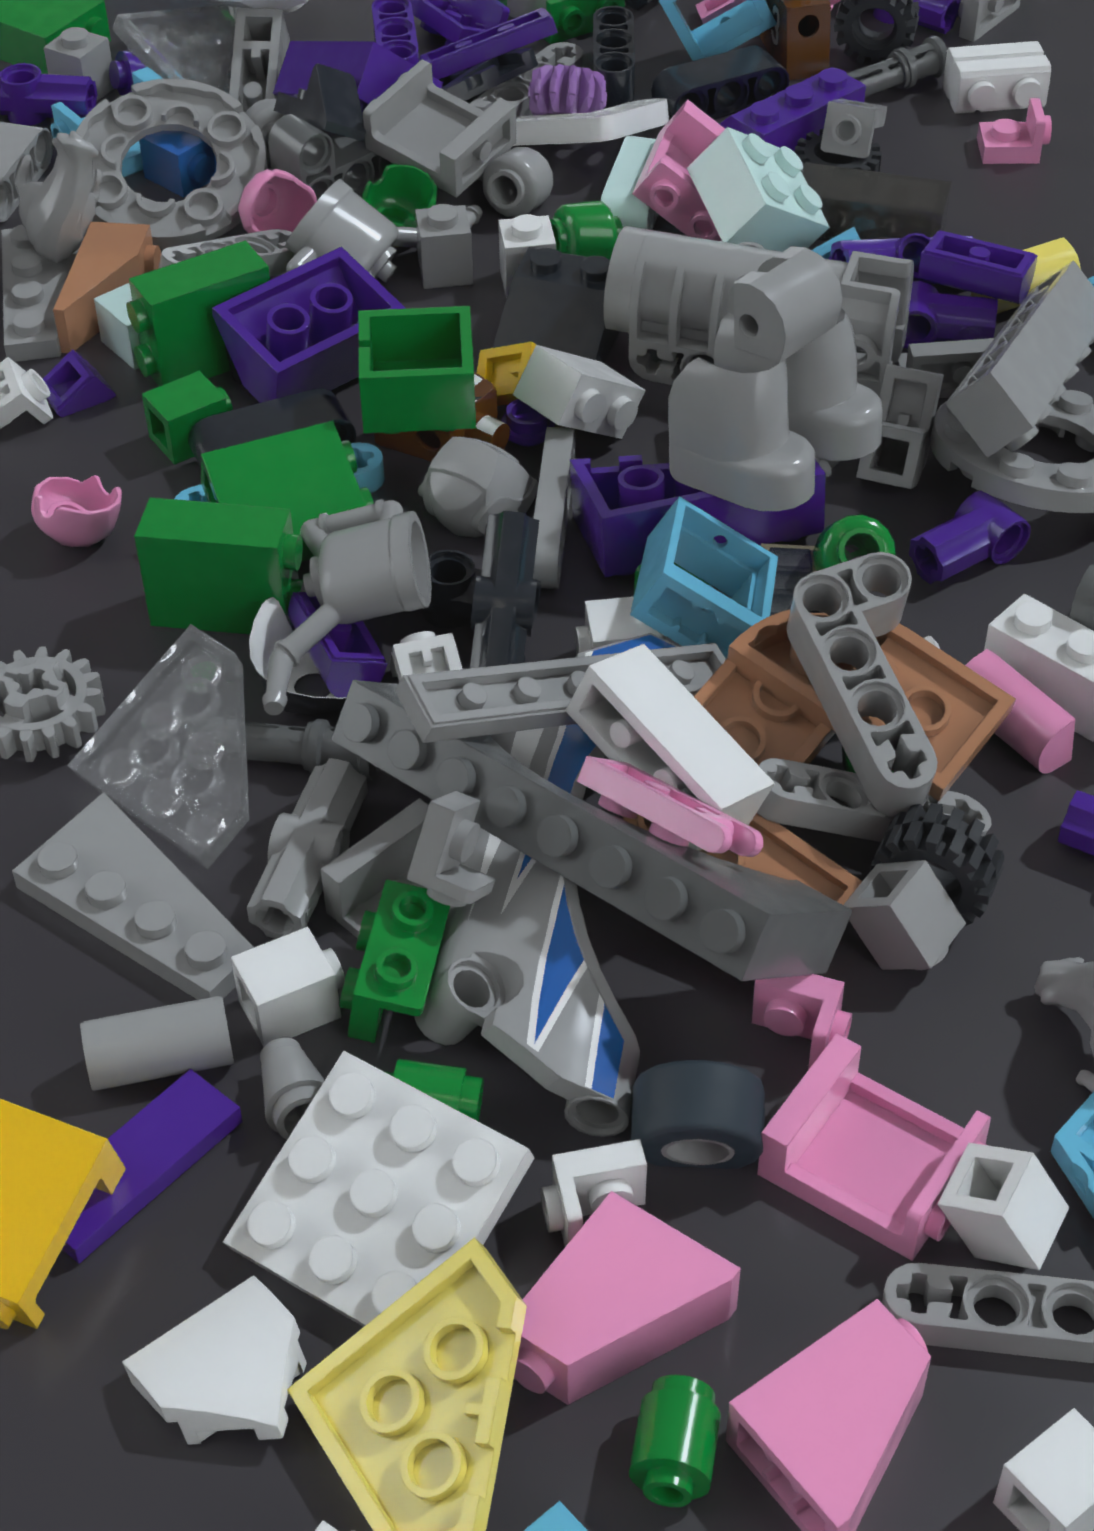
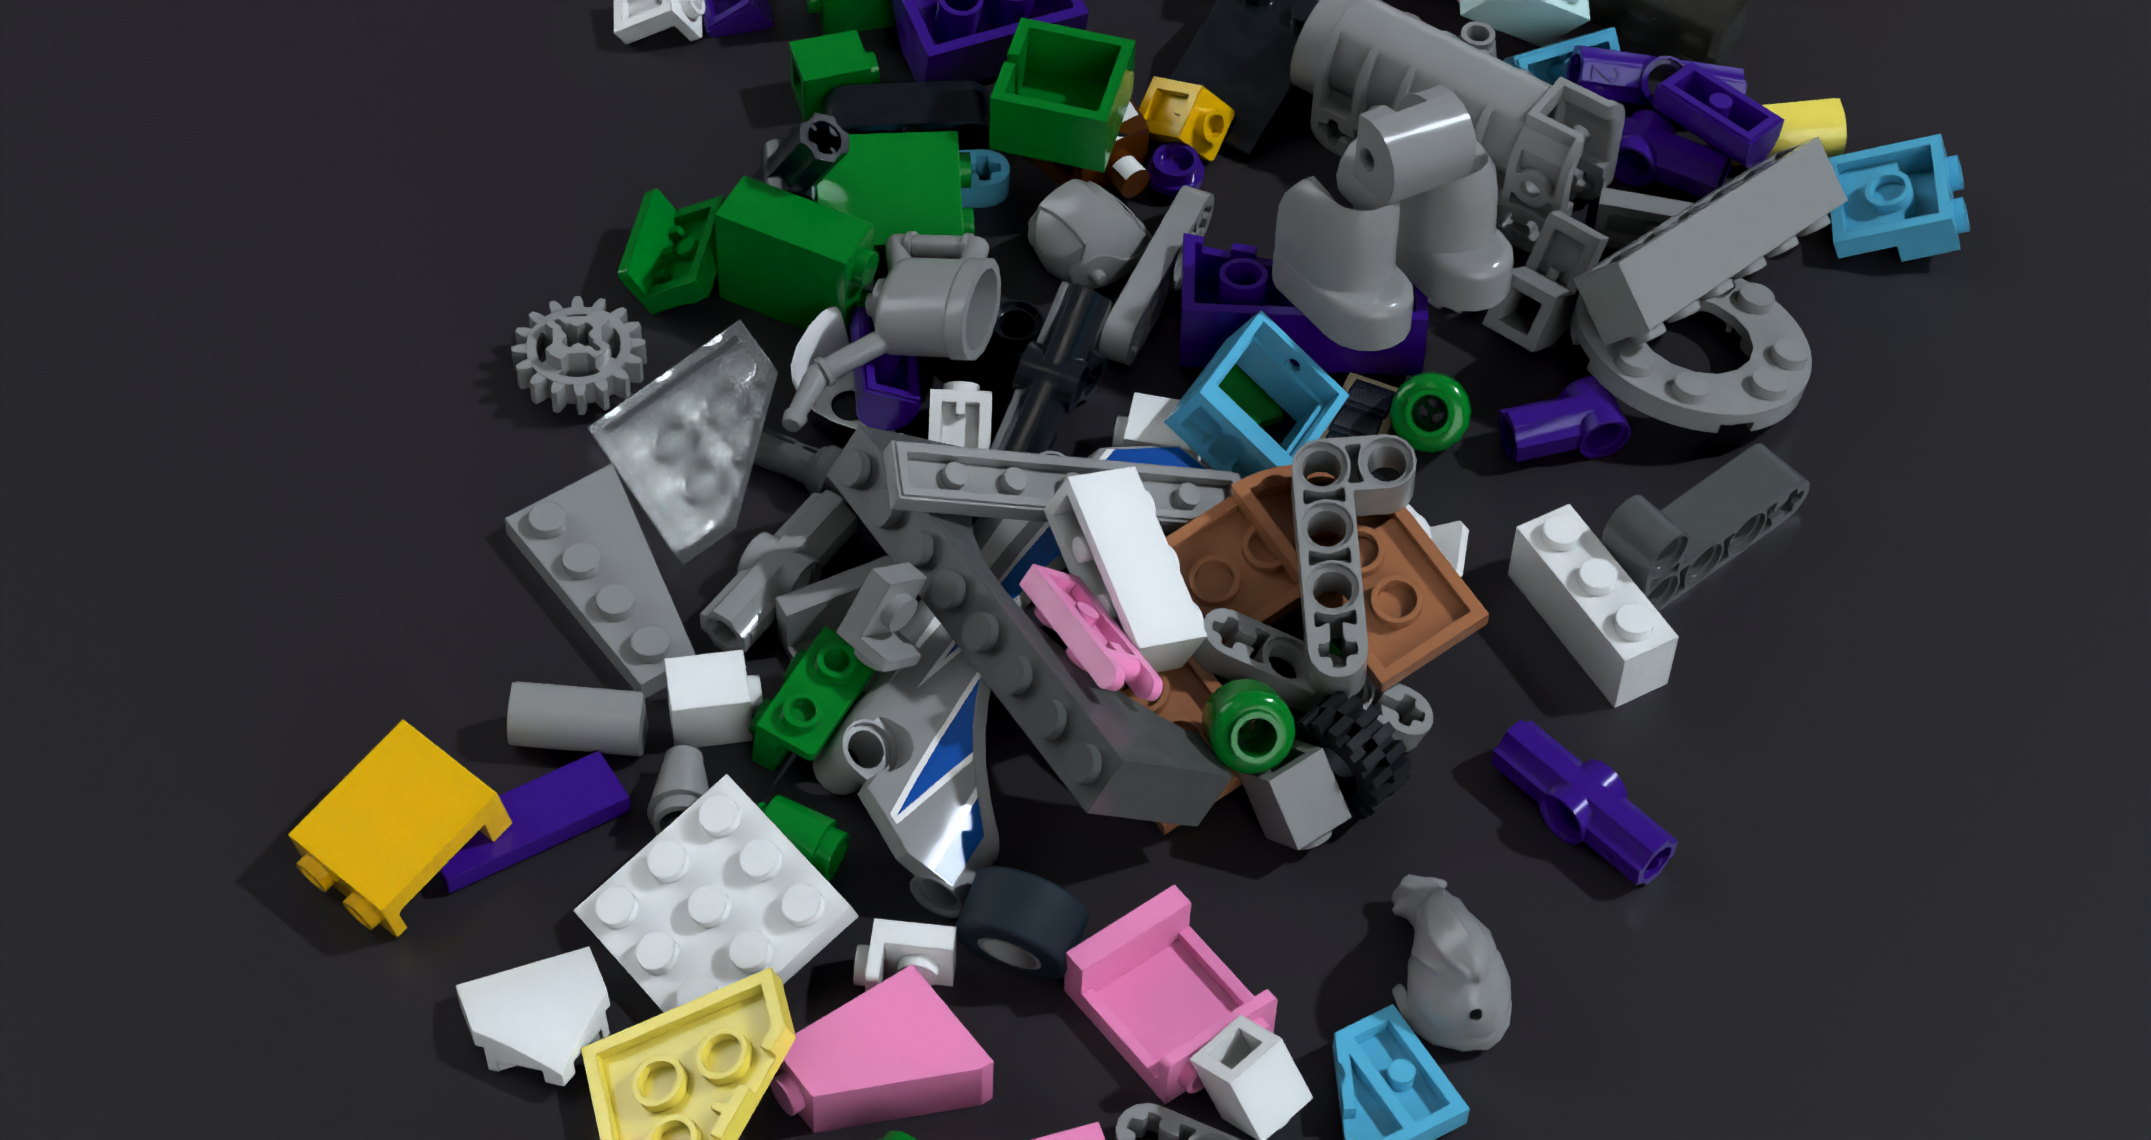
camera: 15 degrees right, 5 degrees up
(75, 510) = (684, 154): bright pink hair -> none
(96, 595) = (671, 253): none -> green bracket
(203, 464) = (804, 156): none -> black piece
(579, 392) = (1230, 155): white brick -> none
(803, 1008) = (1167, 852): bright pink bracket -> none
(846, 858) = (1251, 745): none -> green head
(1037, 724) = (1514, 623): bright pink brick -> none

